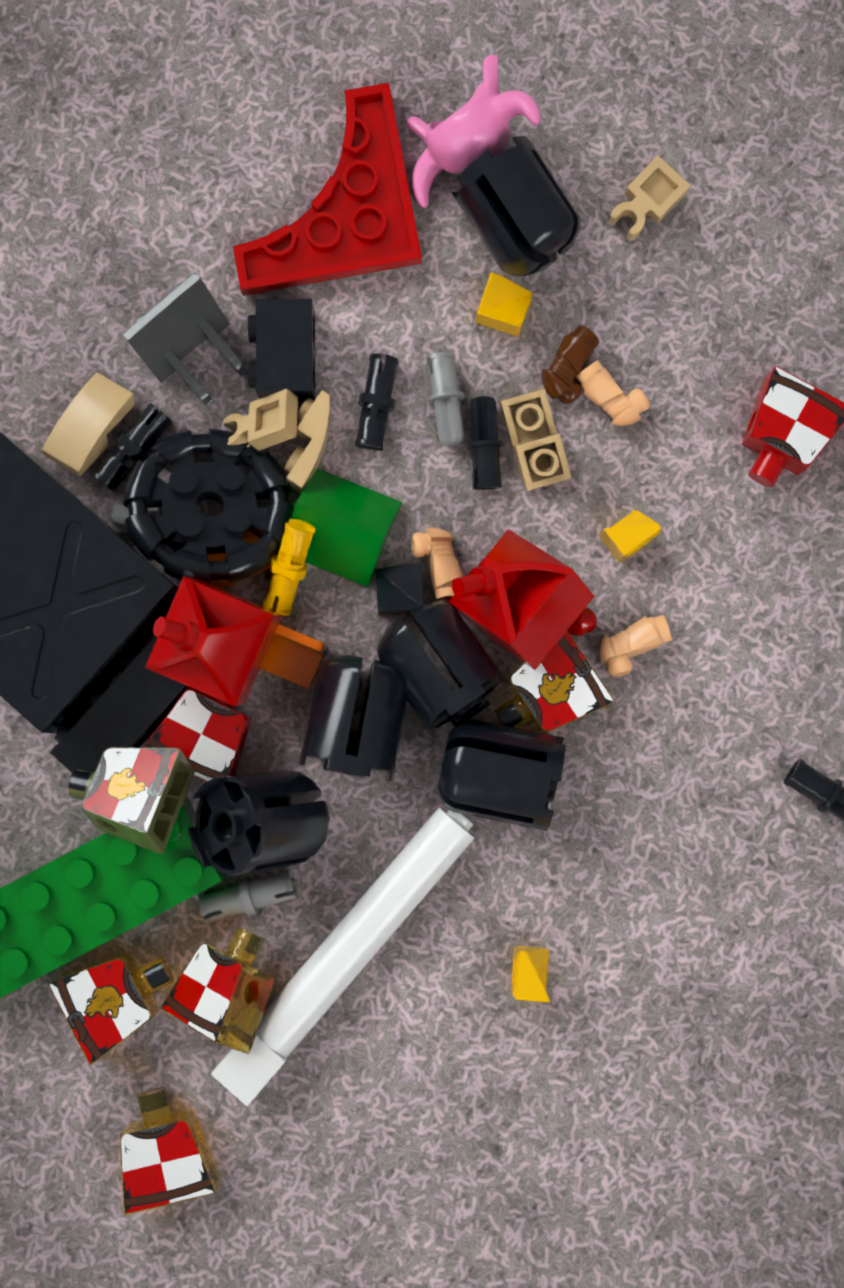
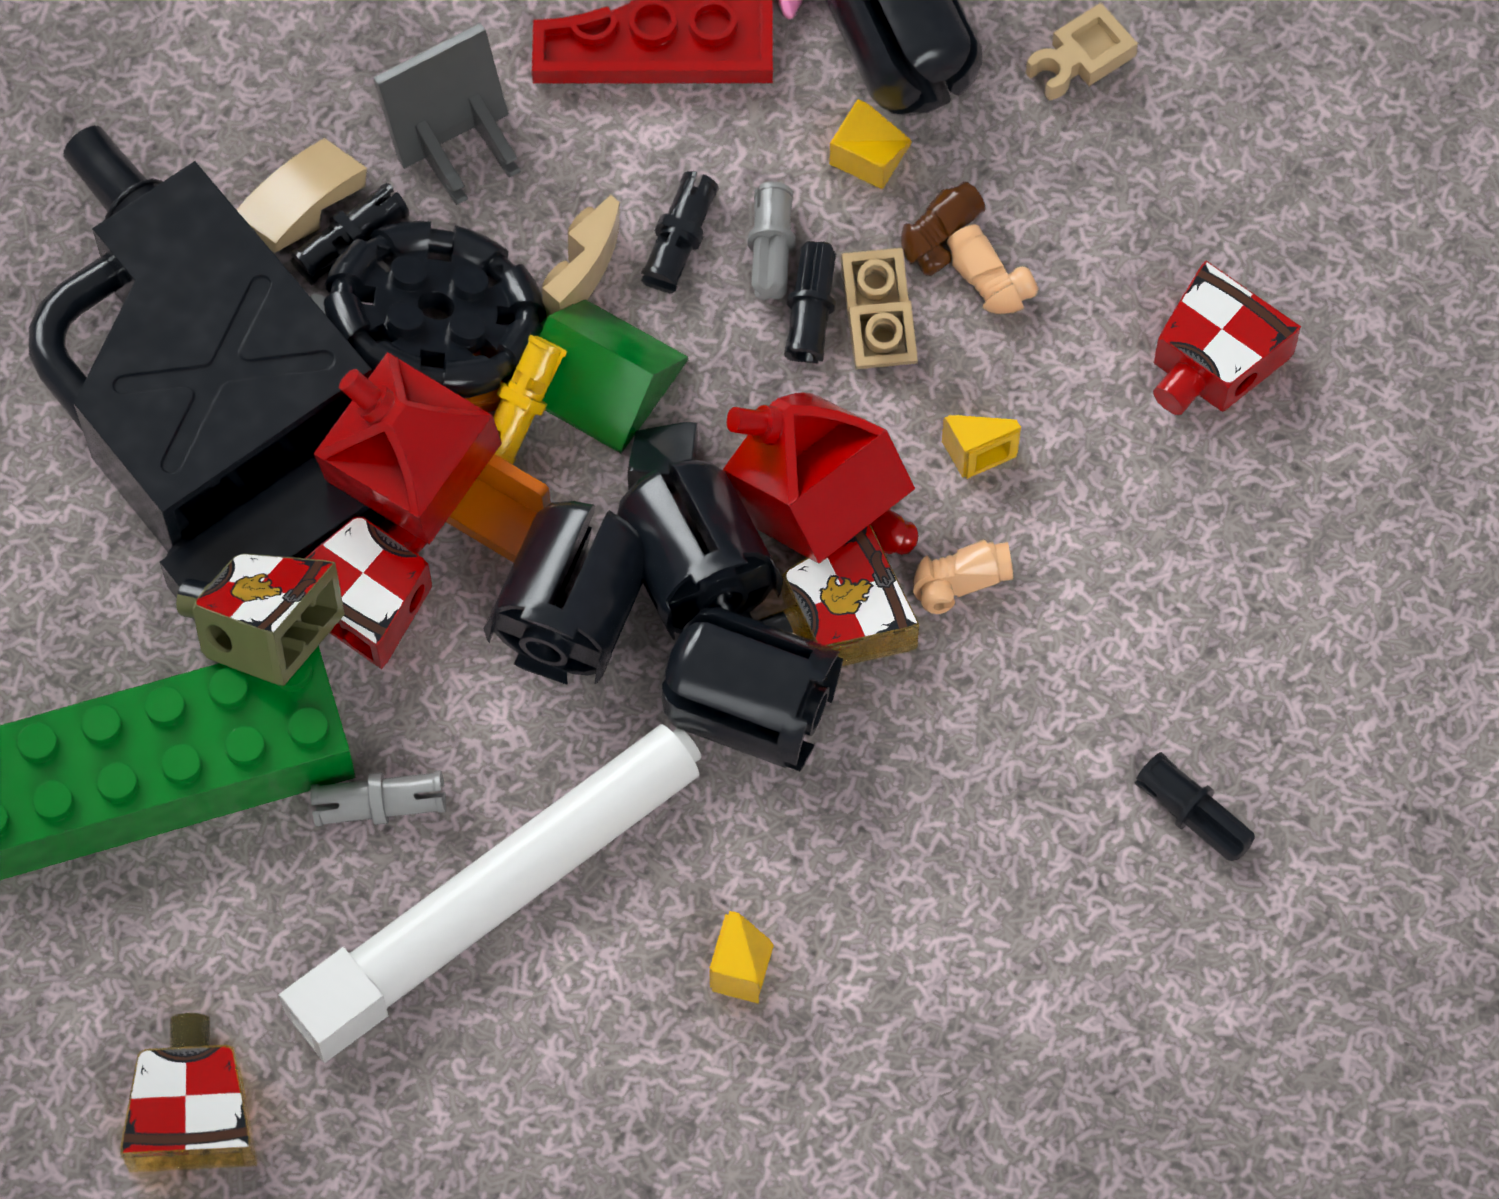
camera: 10 degrees right, 20 degrees down
(109, 1000) = (163, 892): torso -> none
(223, 992) = (317, 896): torso -> none
(258, 822) = (417, 682): black cylinder -> none
(268, 422) = (532, 225): tan plate -> none
(283, 347) = (572, 148): black brick -> none
(441, 559) = (713, 410): light nougat arm -> none

